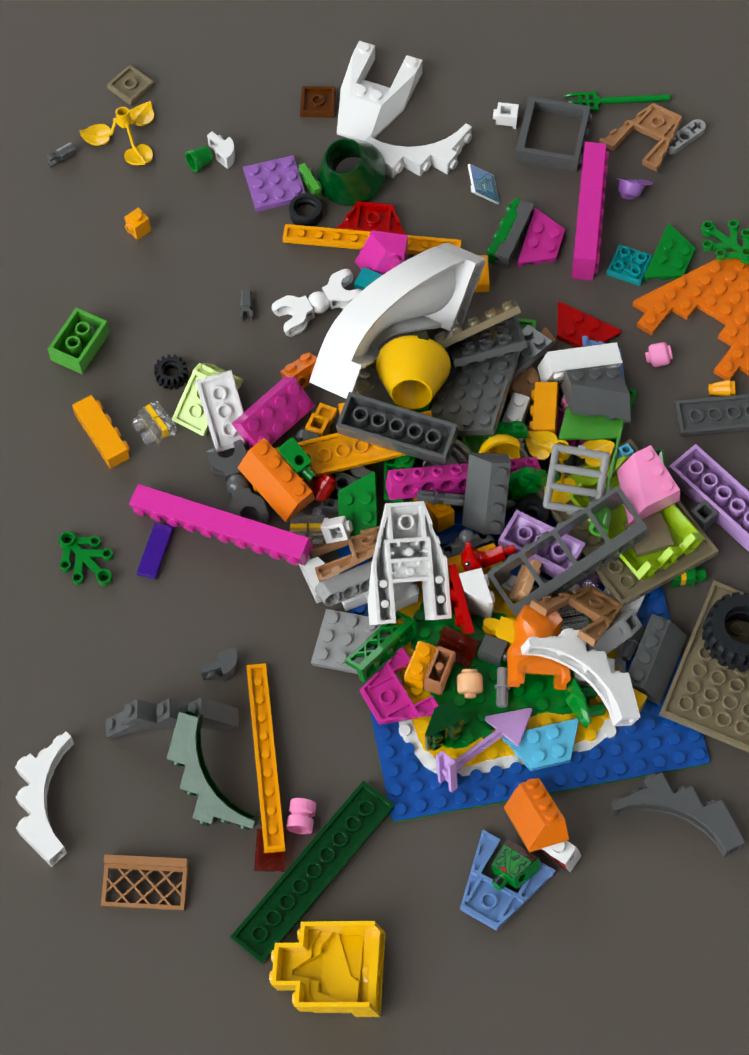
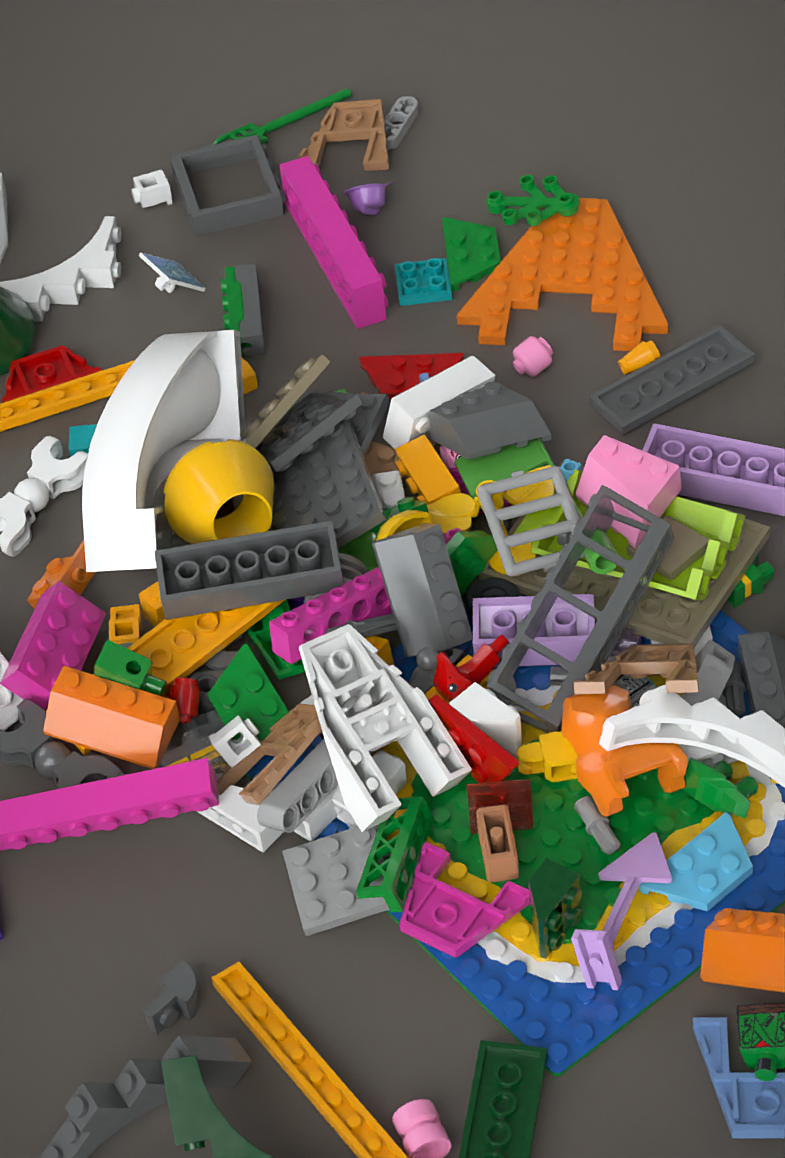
camera: 25 degrees left, 15 degrees down
(383, 251) = (84, 391): dark pink wedge -> none
(419, 665) = (466, 851): light orange brick -> none
(469, 683) = (549, 840): light nougat head -> none
(493, 650) = (554, 785): dark grey brick -> none
(524, 582) = (539, 680): light nougat plate -> none
(541, 241) = (289, 303): dark pink wing -> none
(704, 515) = (722, 495): dark grey brick -> none

